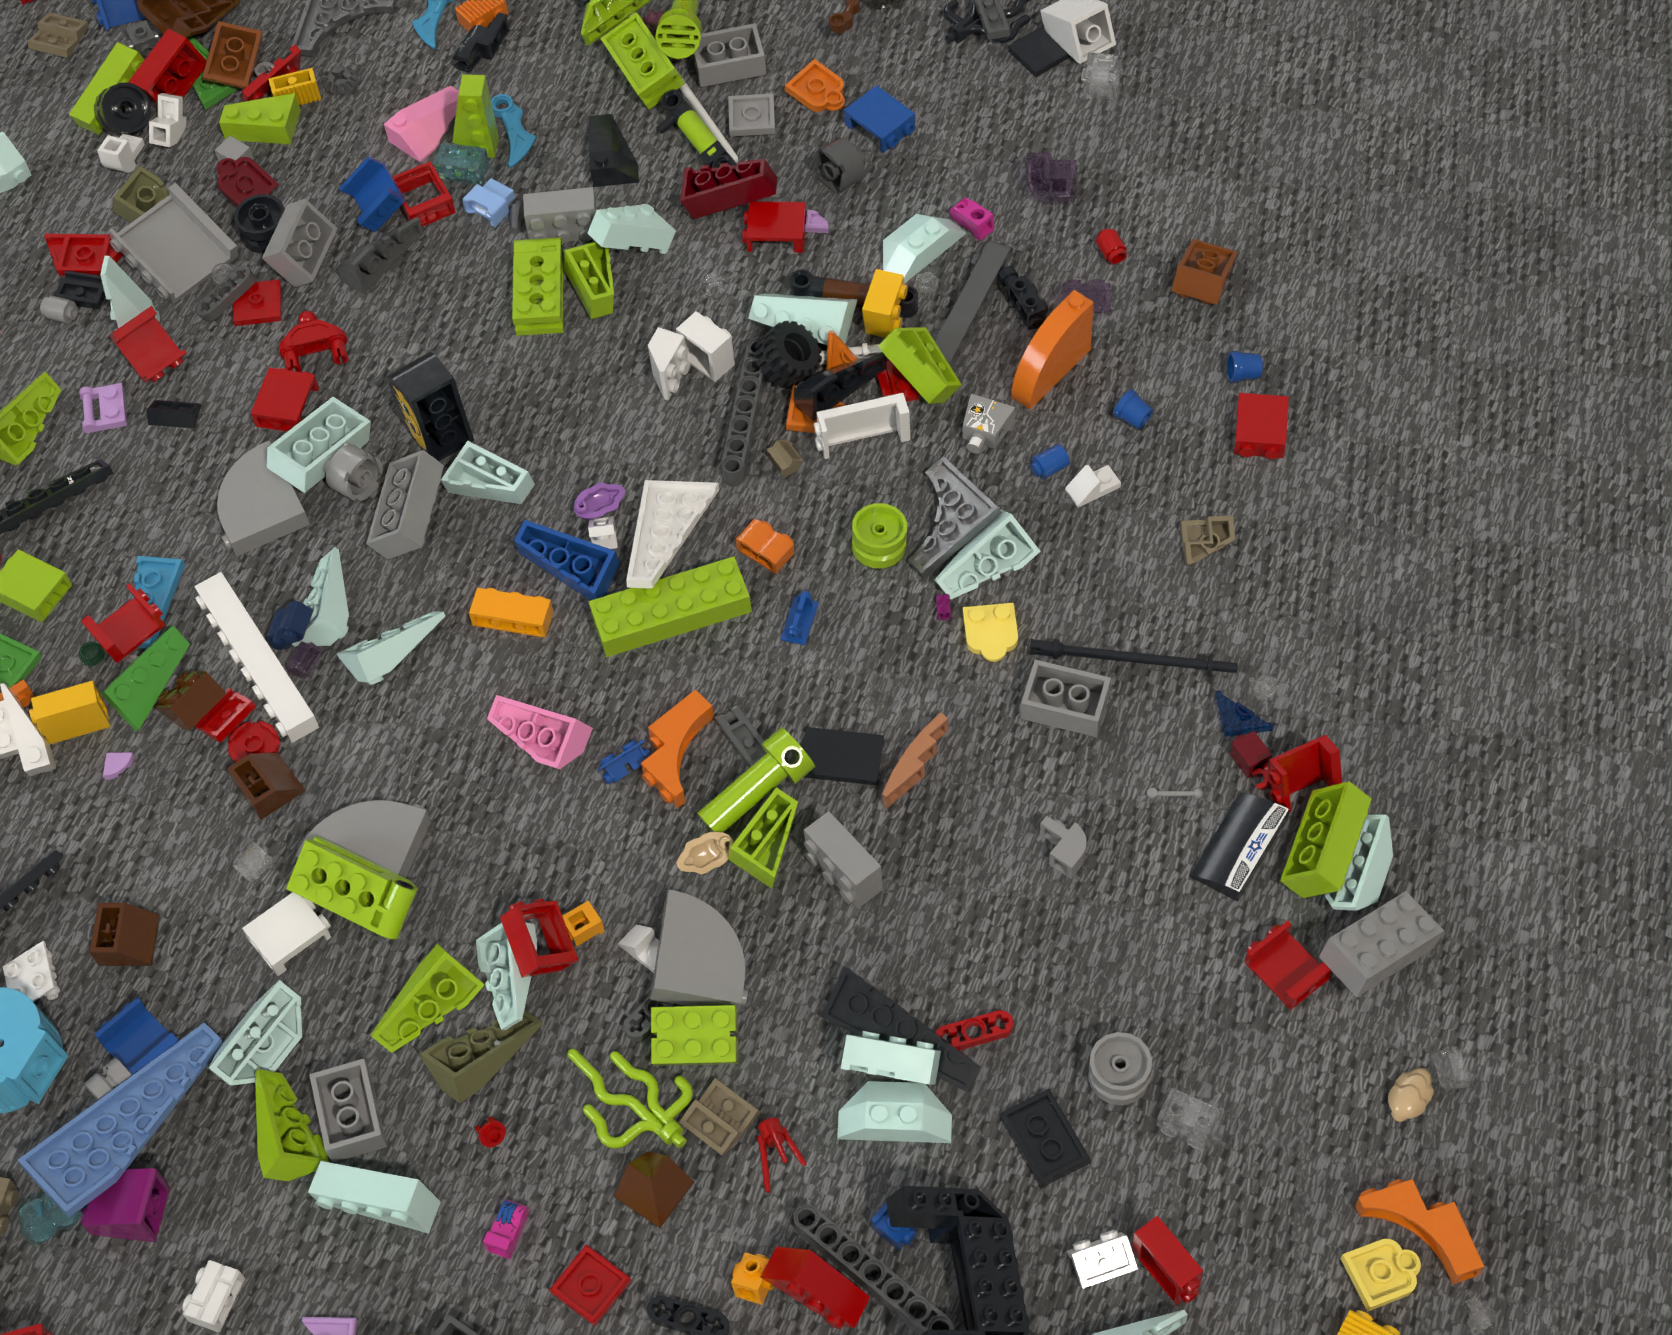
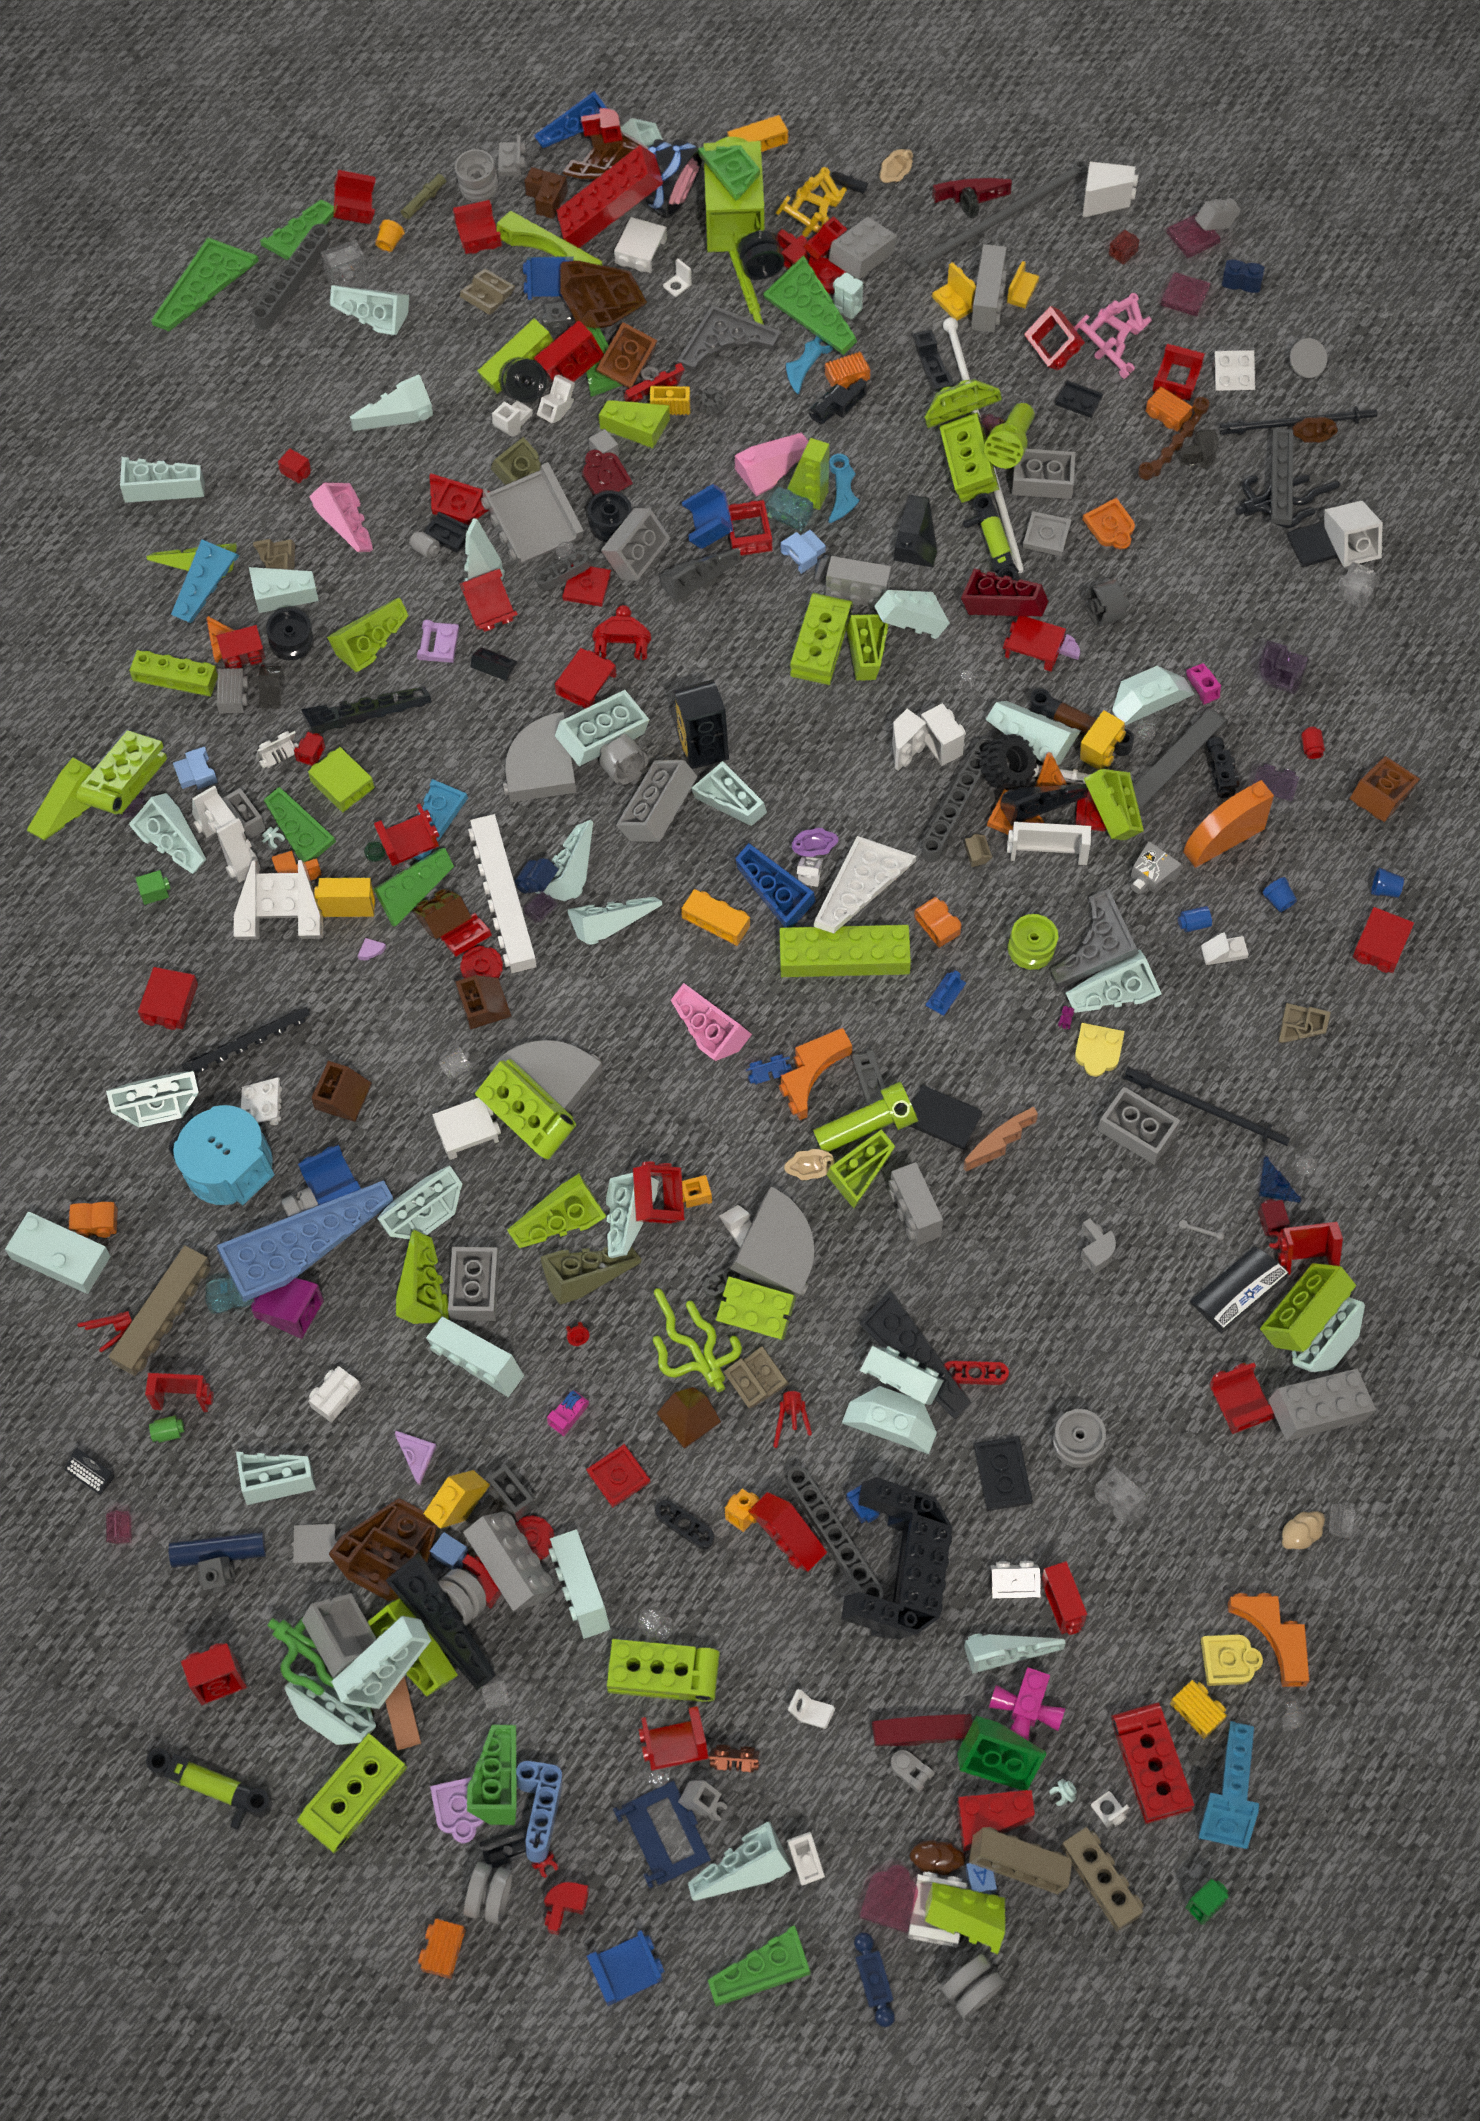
camera: 15 degrees right, 5 degrees up
(881, 116) = (1156, 568): blue panel -> none

